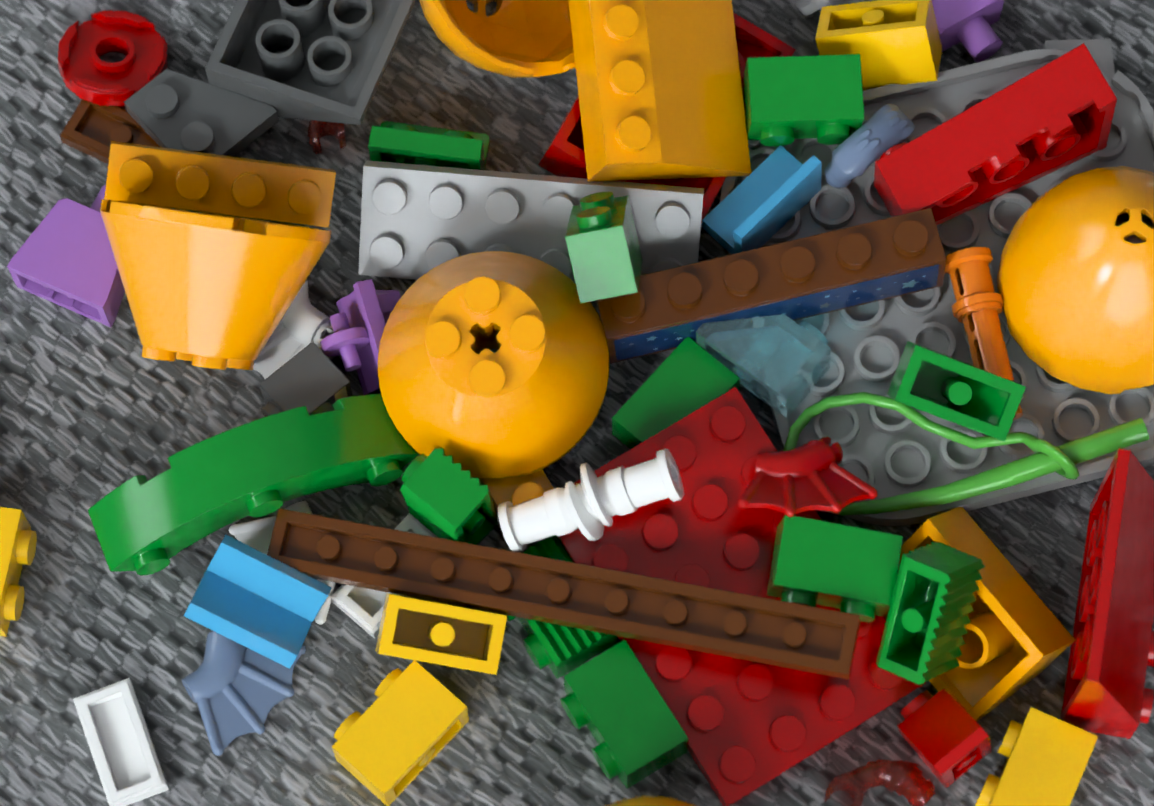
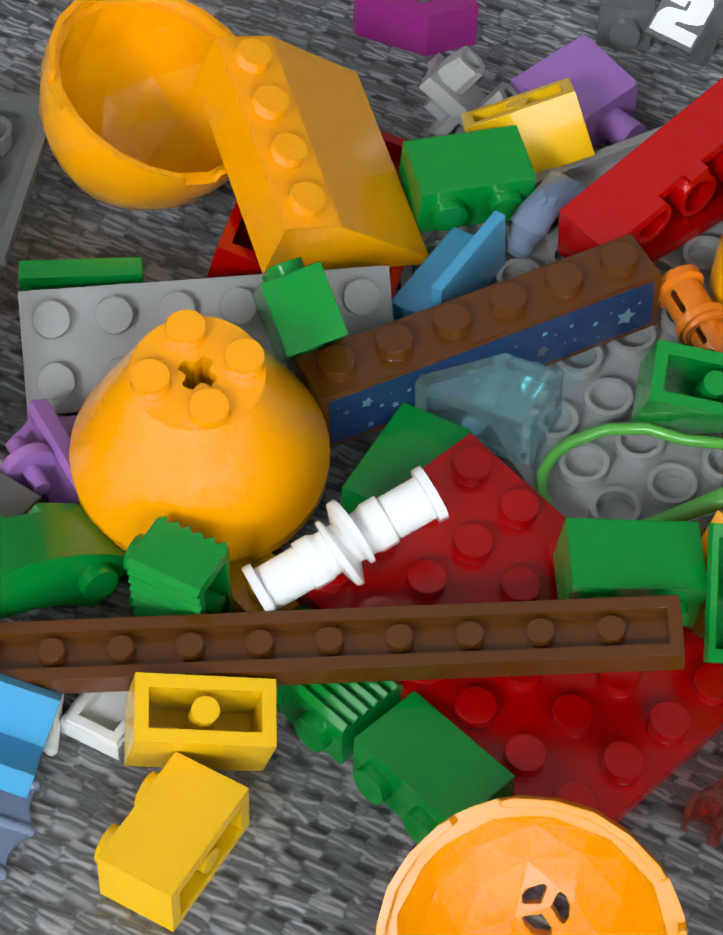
camera: 15 degrees left, 20 degrees down
(804, 480) = (574, 490): red arm -> none

